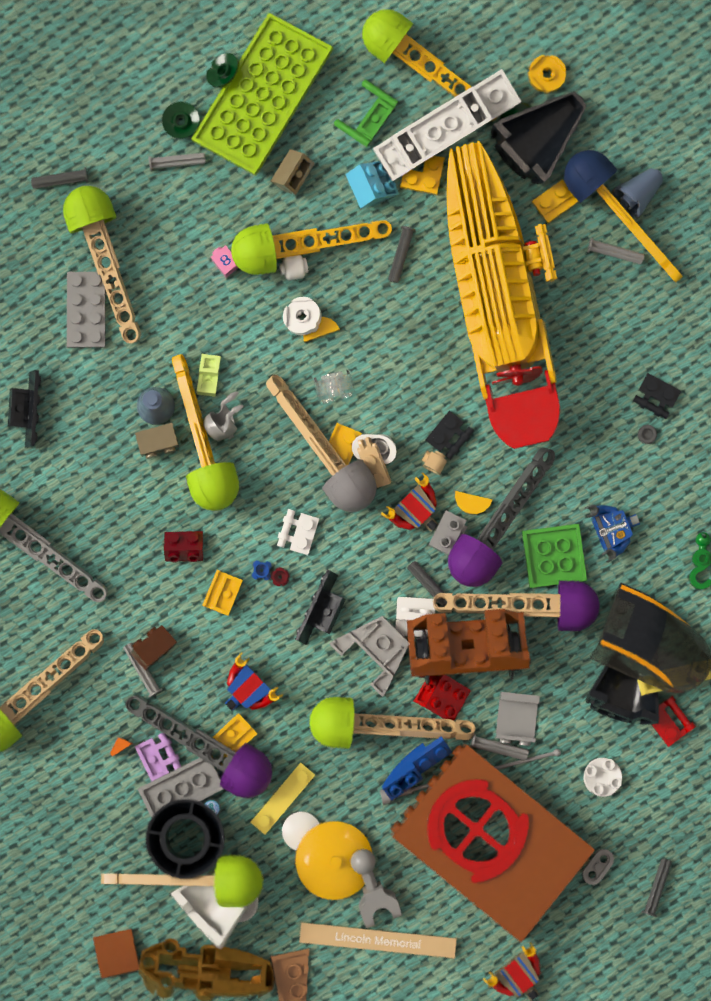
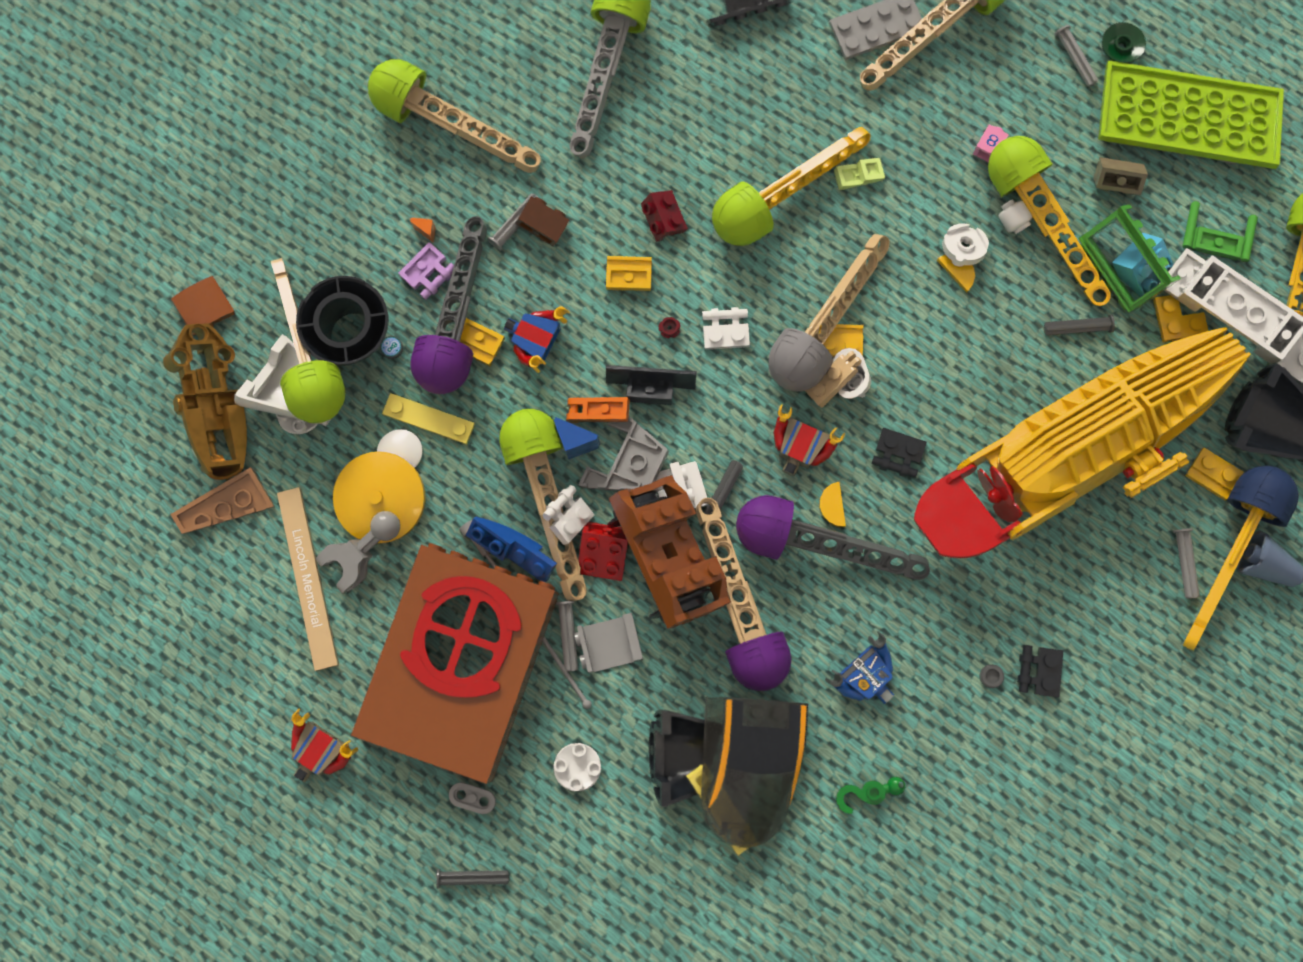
camera: 80 degrees right, 5 degrees down
(155, 405) = (804, 129): sand blue cone -> none
(157, 440) = (767, 144): dark tan brick -> none
(192, 781) = (407, 309): light grey plate -> none
(222, 424) = (811, 205): light grey hair -> none
(223, 70) = (1198, 65): dark green dish -> none
(260, 565) = (673, 301): blue plate -> none
(328, 658) = (598, 409): none -> orange plate
(334, 385) = (903, 305): clear brick -> none
(347, 687) = (576, 439): none -> blue slope
(367, 213) = (1144, 246): none -> bright green window
(410, 711) = (572, 520): none -> white plate
(434, 462) = (862, 445): tan plate -> none
(447, 532) = (790, 487): light grey brick -> none
(554, 555) = (810, 618): bright green plate -> none
(666, 727) = (662, 820): red plate -> none

